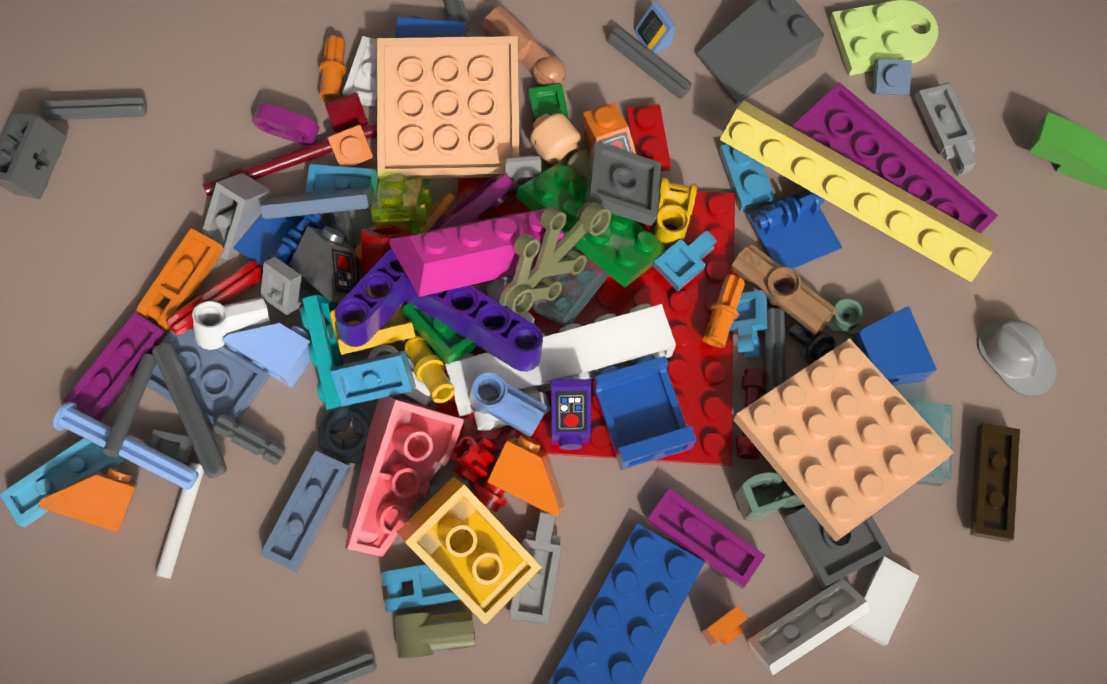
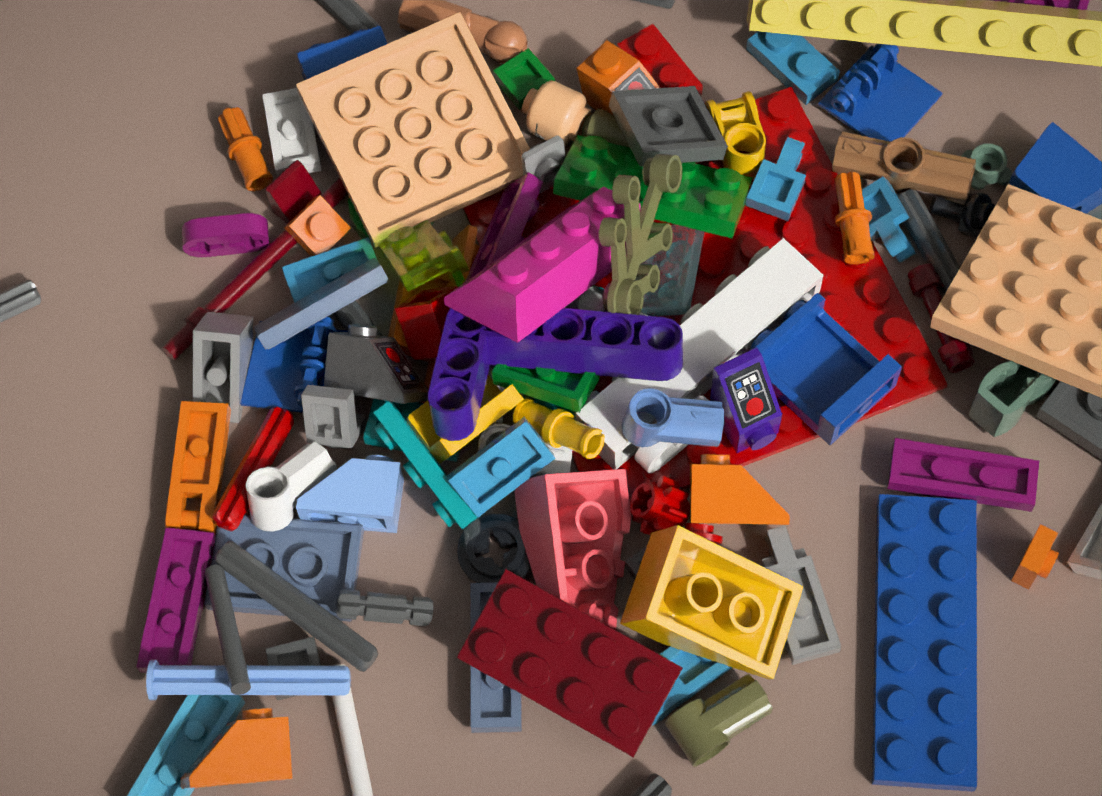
camera: 20 degrees left, 5 degrees down
(347, 543) = (569, 663): none -> dark red plate

